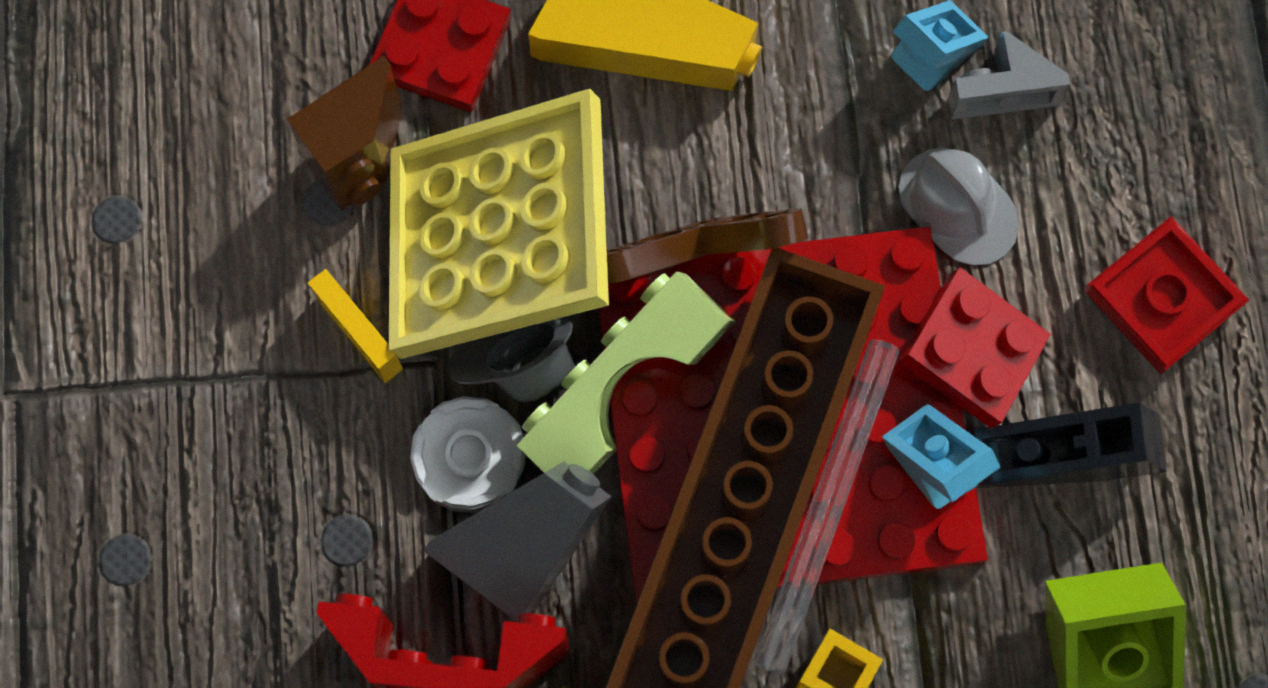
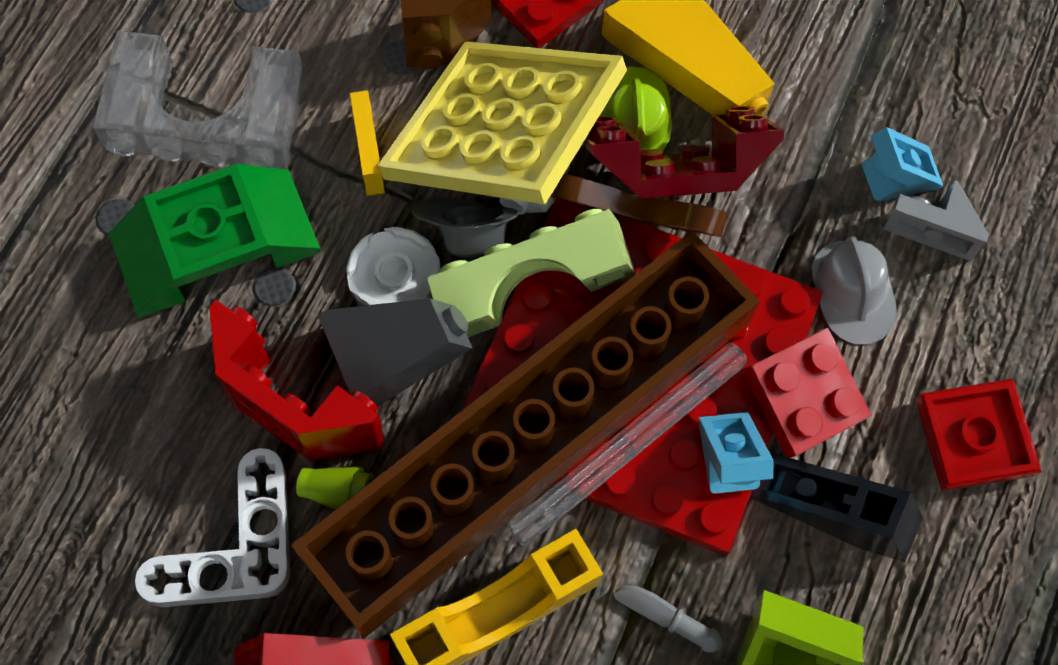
camera: 25 degrees right, 5 degrees down
(221, 386) = (251, 133): none -> clear arch
(247, 525) = (208, 229): none -> green slope
(635, 134) = (643, 107): none -> lime piece
(763, 125) = (739, 147): none -> dark red slope
(960, 660) = (667, 615): none -> light grey piece

